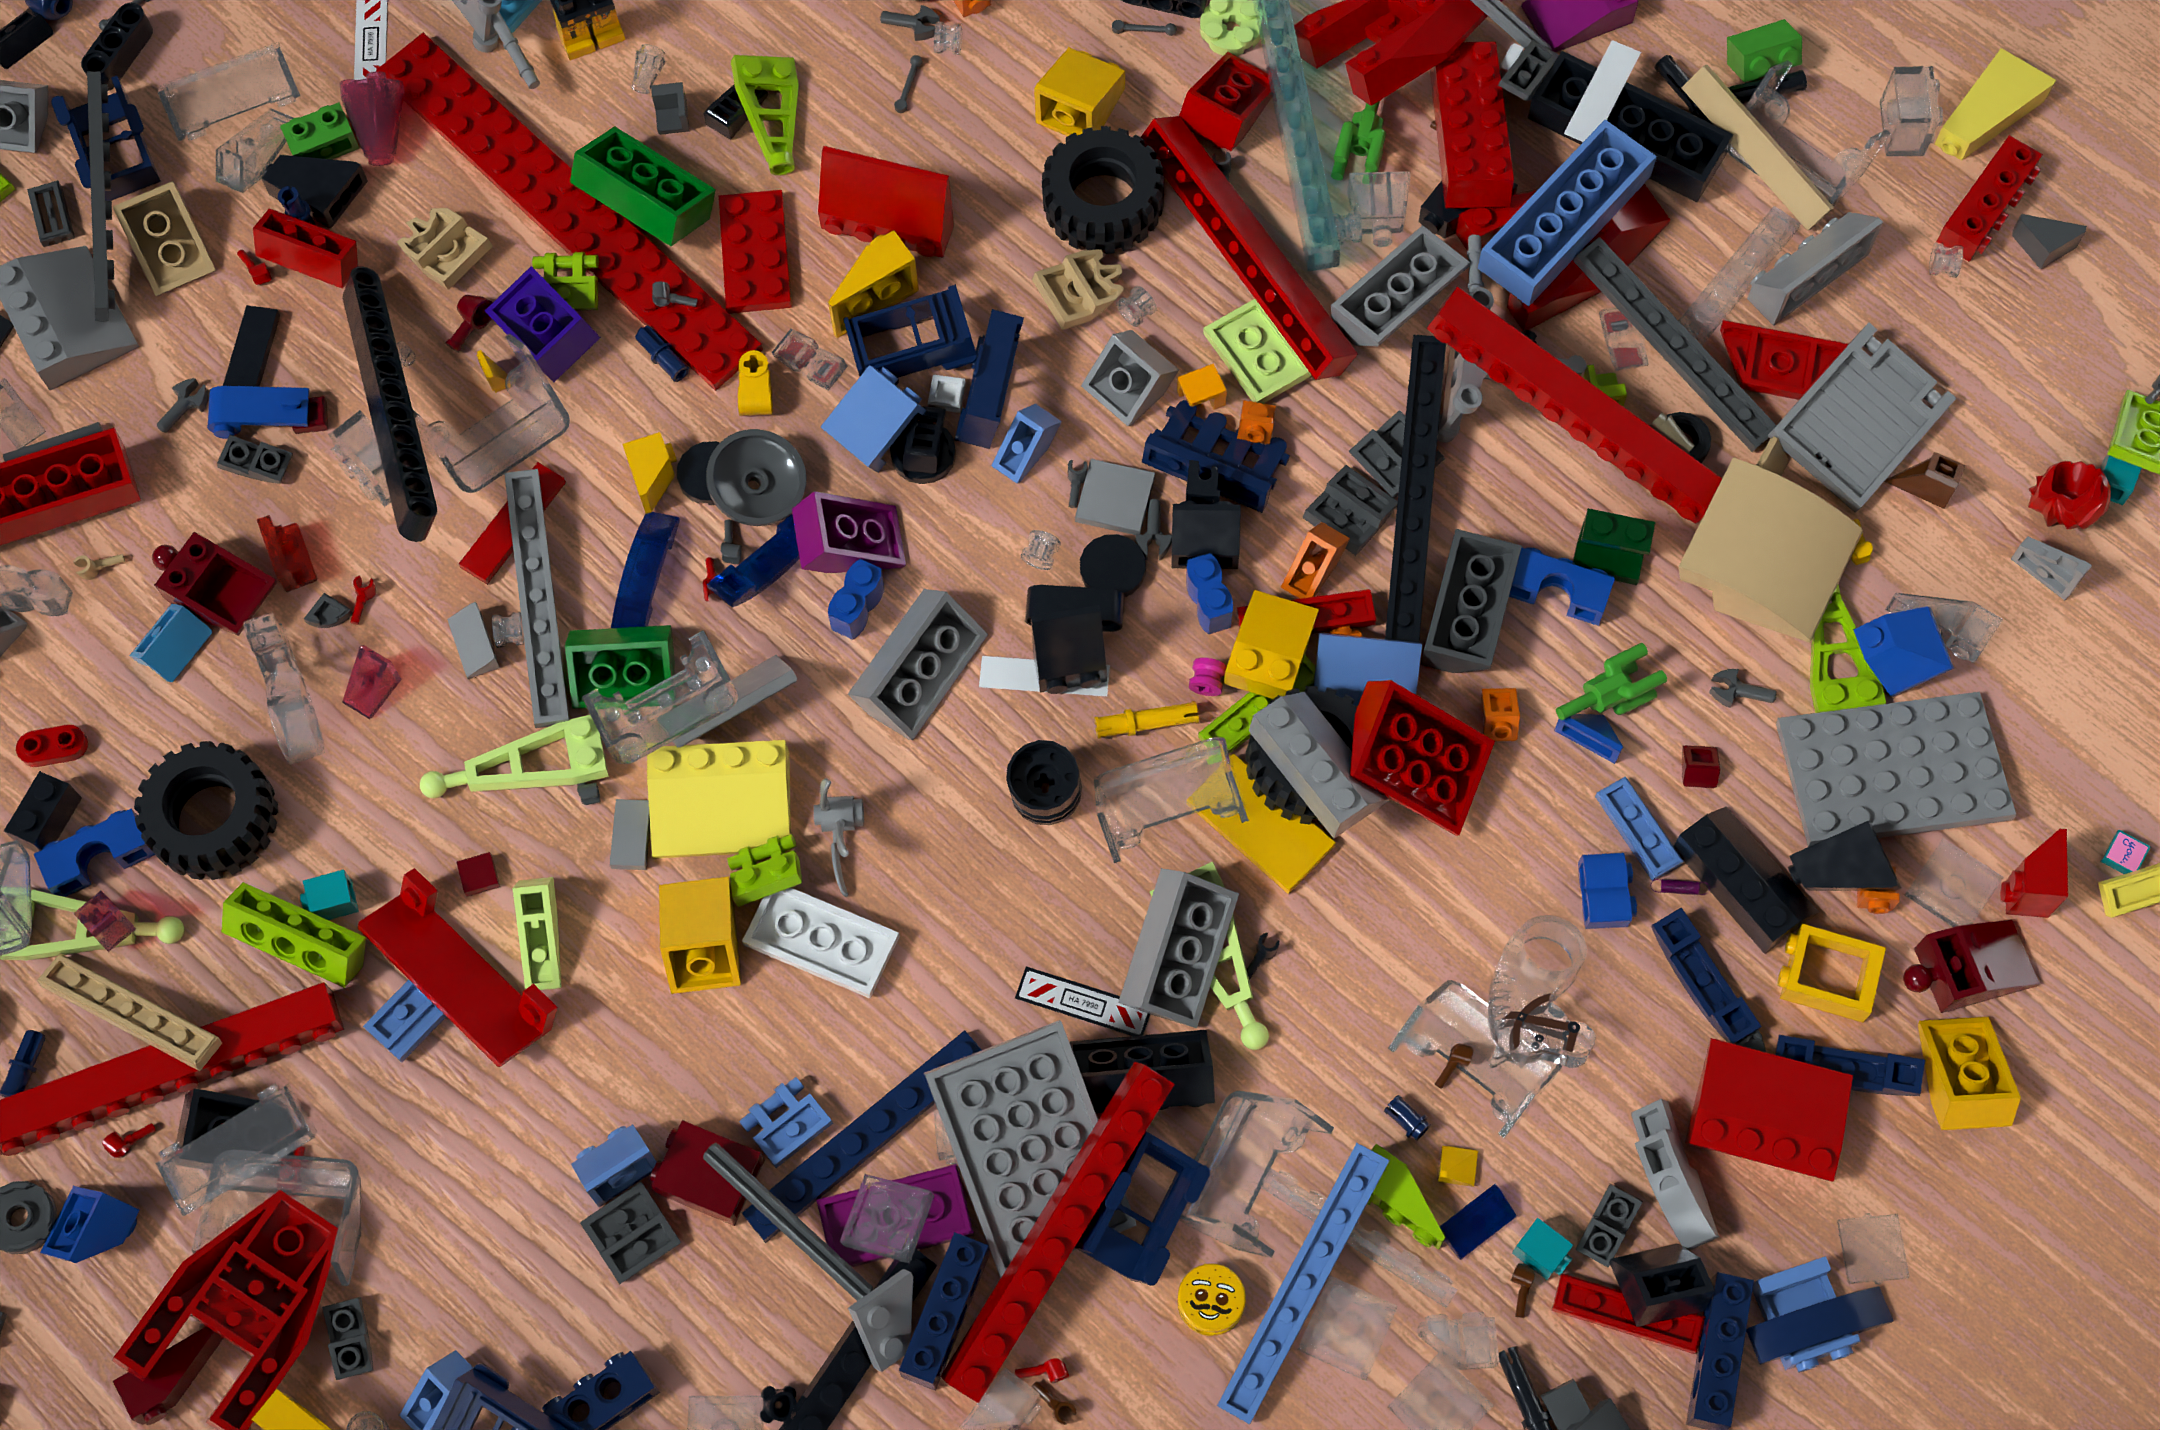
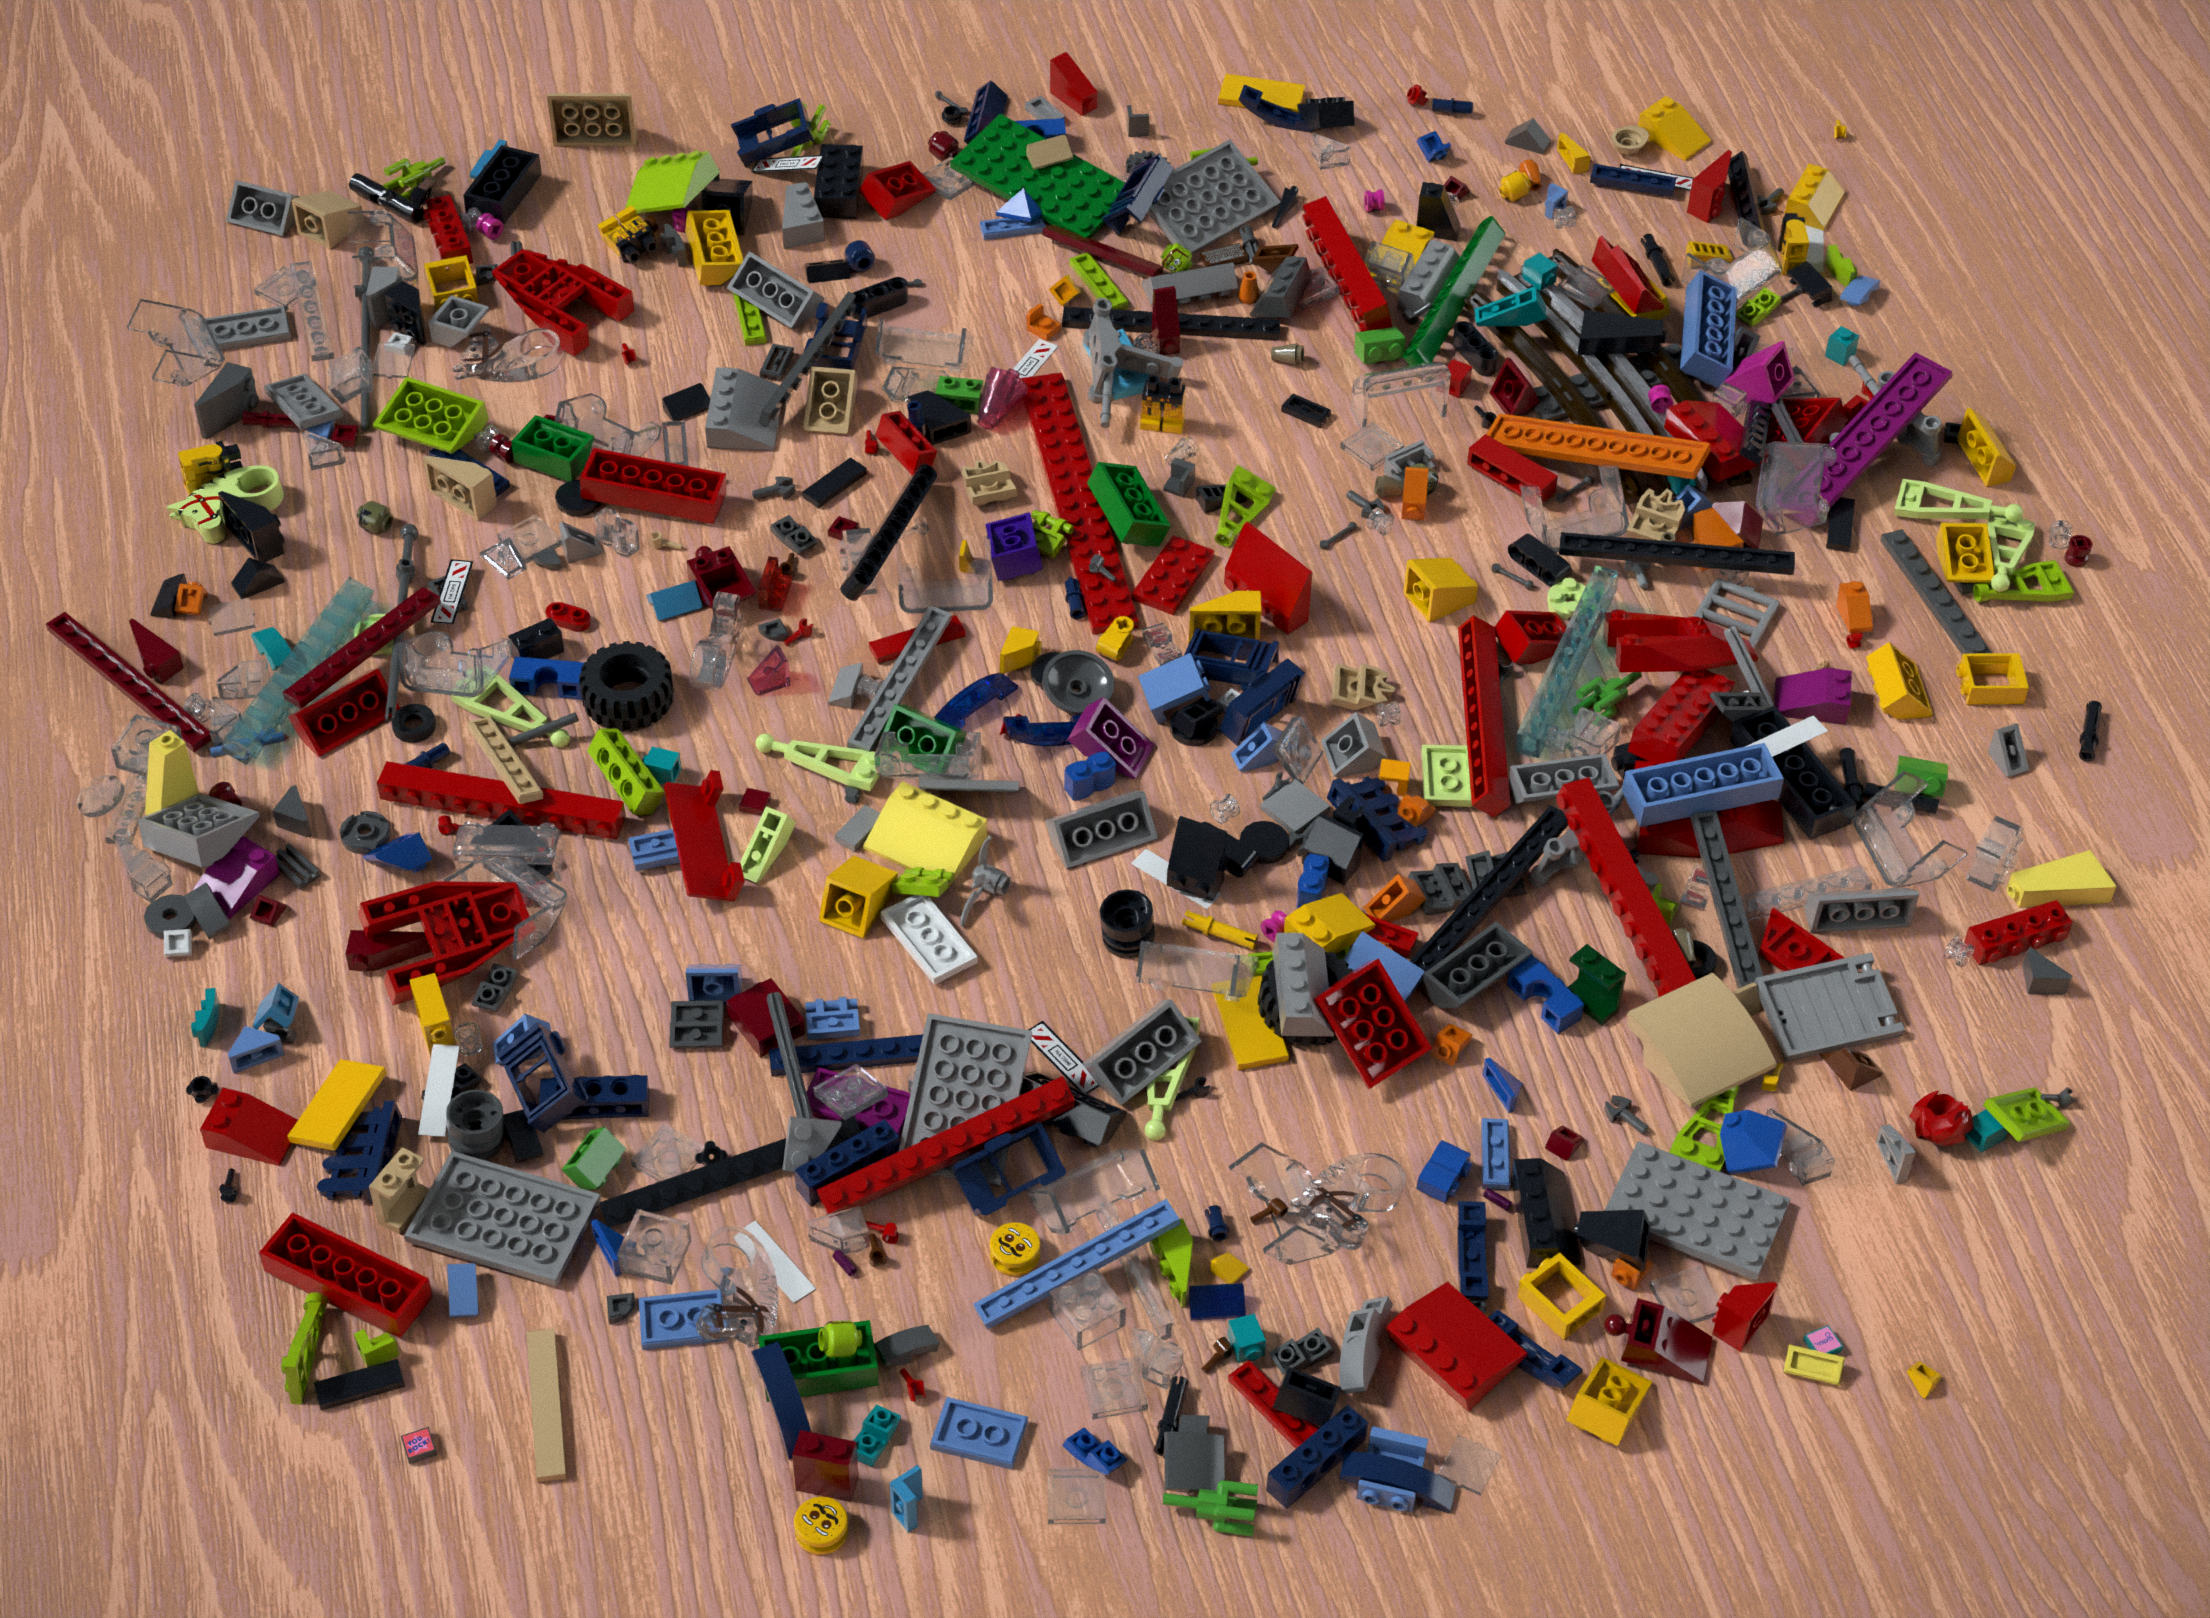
camera: 30 degrees right, 20 degrees down
(104, 921) = (527, 712): clear pink slope -> none
(143, 935) = (543, 729): none -> dark grey bar
(255, 406) = (815, 506): blue door -> none
(278, 507) = (787, 566): none -> reddish brown hand
(473, 312) = (976, 526): dark red bar -> none
(730, 552) = (1035, 714): dark grey hand -> none
(1074, 422) = (1298, 750): none -> clear plate
(1095, 155) = (1414, 620): black tyre -> none
(1615, 687) = (1536, 1062): bright green plant -> none
(1758, 147) = (1871, 823): tan tile -> none

